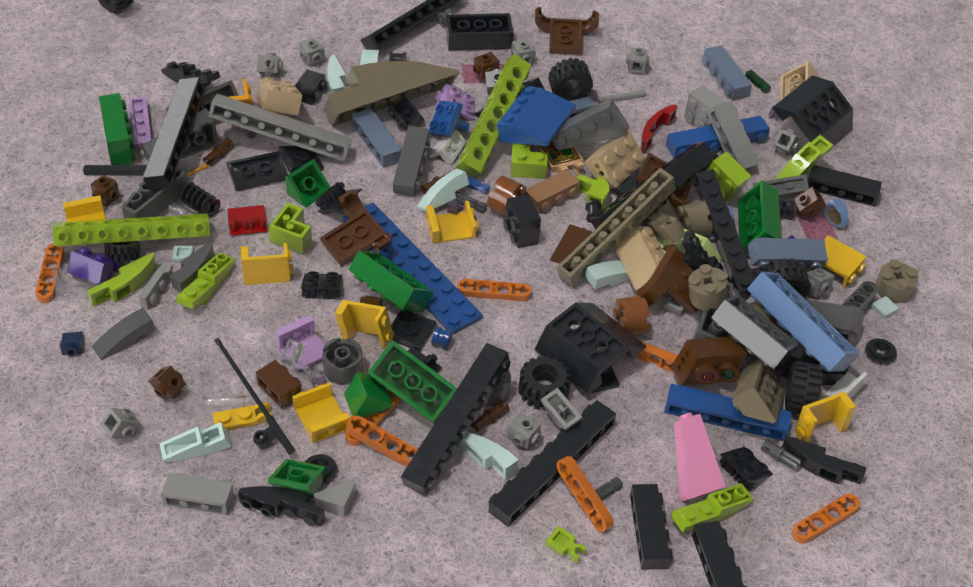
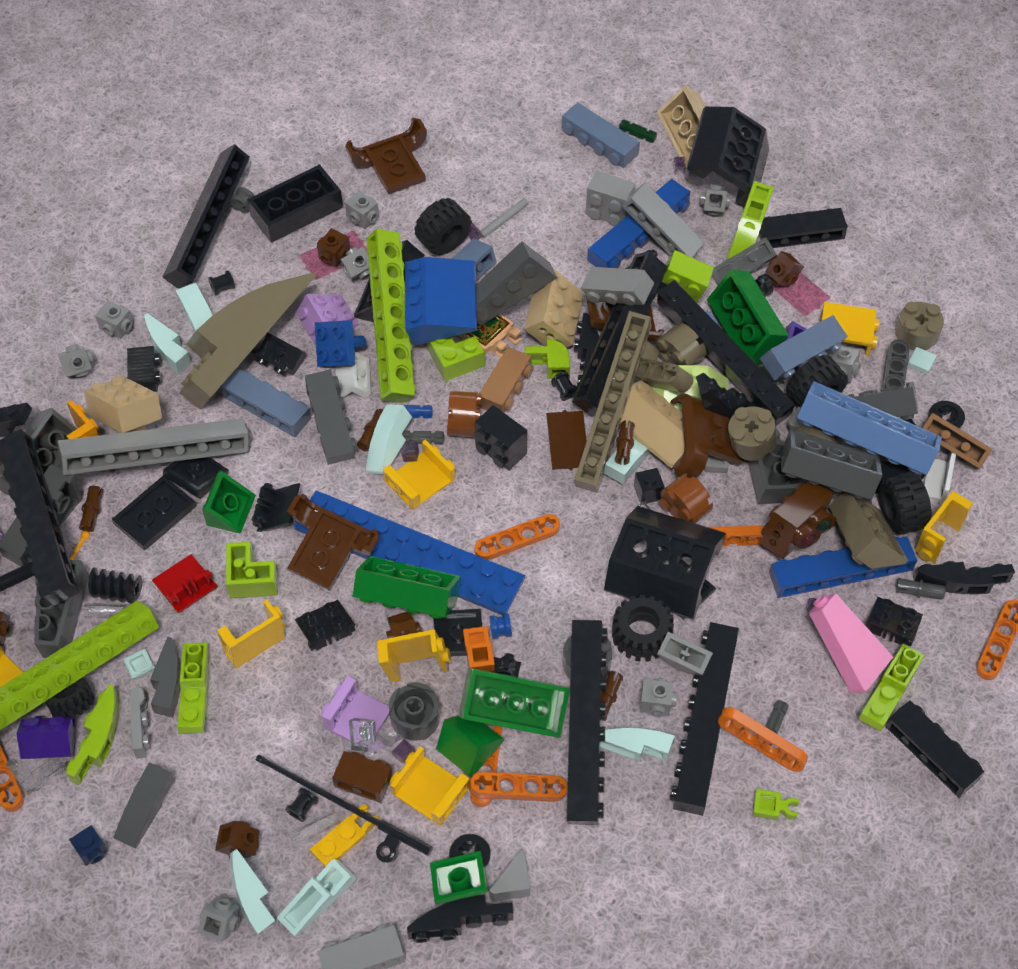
camera: 25 degrees left, 10 degrees up
(150, 416) = (248, 893): none -> light aqua slope
(232, 378) = (301, 804): none -> black bush
(414, 340) = (478, 648): none -> orange brick
(610, 258) = (624, 442): none -> reddish brown pin
(610, 295) = (648, 485): none -> black brick
(638, 57) = (496, 163): light grey brick -> none
(650, 527) = (844, 741): black brick -> none
(663, 116) = (566, 226): red slope -> none
(665, 153) = (617, 285): none -> light grey brick
(837, 213) = (816, 267): medium blue rock -> none
(876, 367) = (958, 441): none -> medium nougat brick

